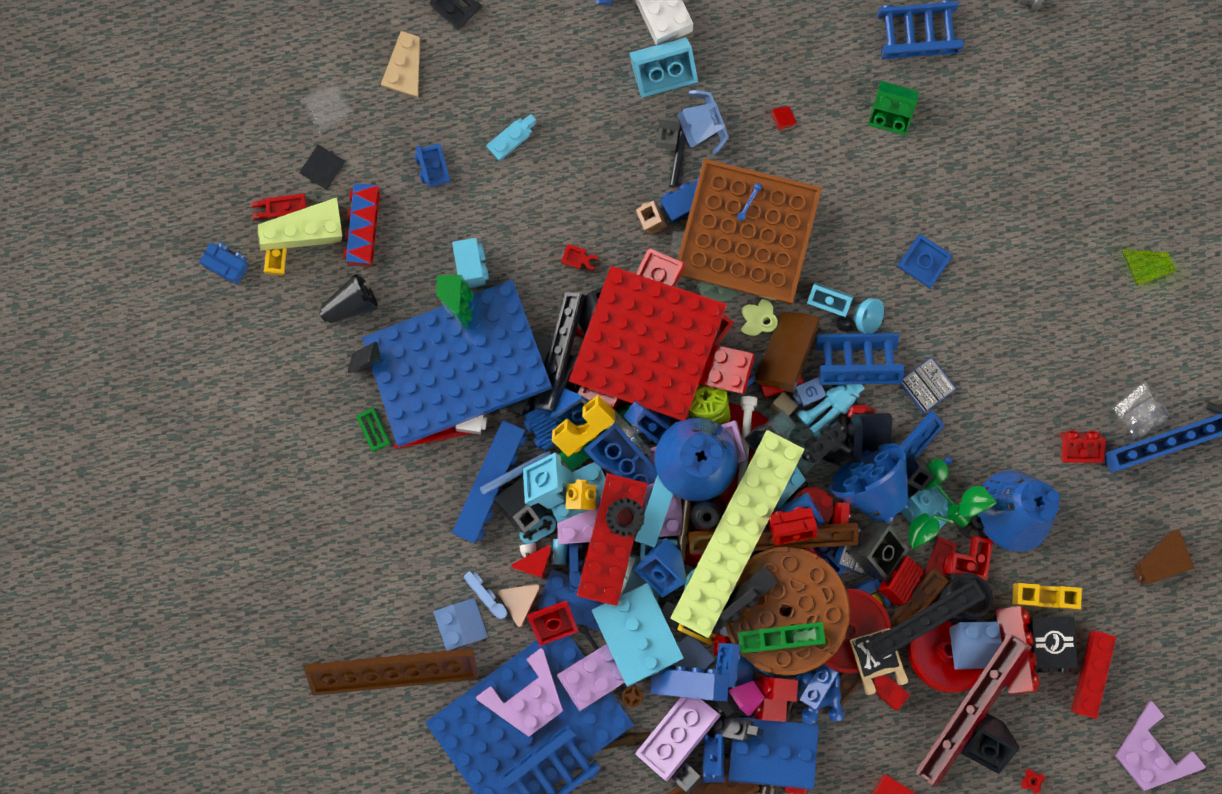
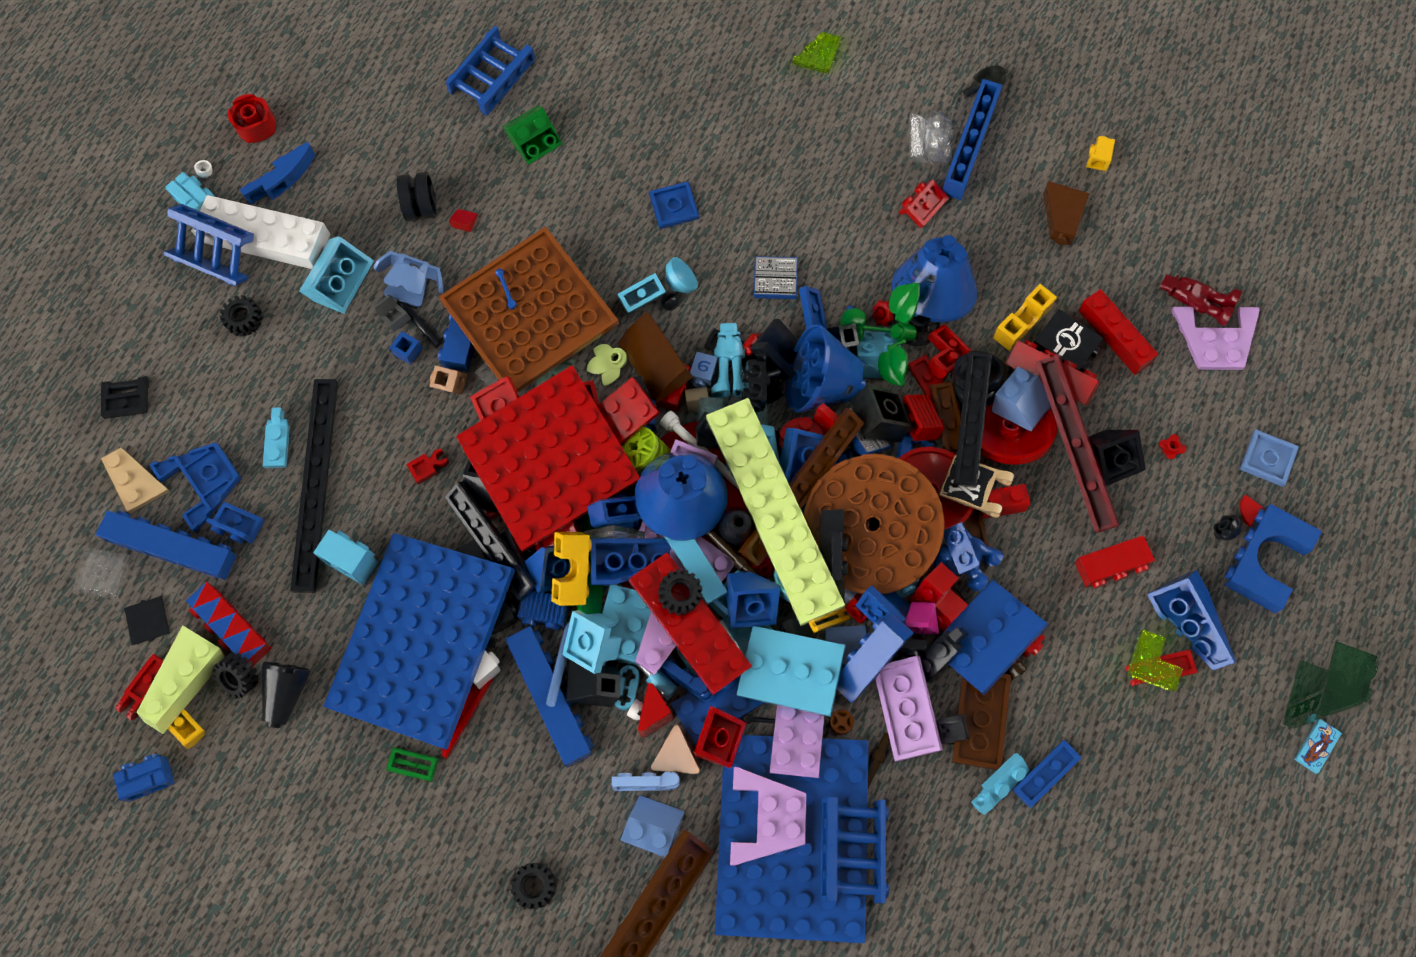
camera: 50 degrees left, 10 degrees down
(333, 262) = (235, 675): none -> black tyre
(352, 568) = (518, 886): none -> black tyre
(364, 358) = (343, 717): black slope -> none
(379, 132) = (166, 545): none -> blue brick
(450, 114) = (208, 473): none -> blue wing
(455, 297) = (363, 589): green slope -> none
(503, 192) = (314, 486): none -> black plate
(578, 17) = (235, 306): none -> black tyre
(581, 496) = (629, 618): yellow brick -> none
(650, 160) = (403, 343): none -> blue plate
(714, 759) = (953, 693): blue hinge -> none
(769, 71) = (416, 196): none -> black wheel
(781, 637) = (894, 543): green slope -> none
(792, 525) = (805, 457): red brick -> none
(859, 374) = (719, 318): blue fence -> none
(963, 485) = (882, 313): none -> red piece
(1176, 712) = (1198, 296): none -> dark red piece

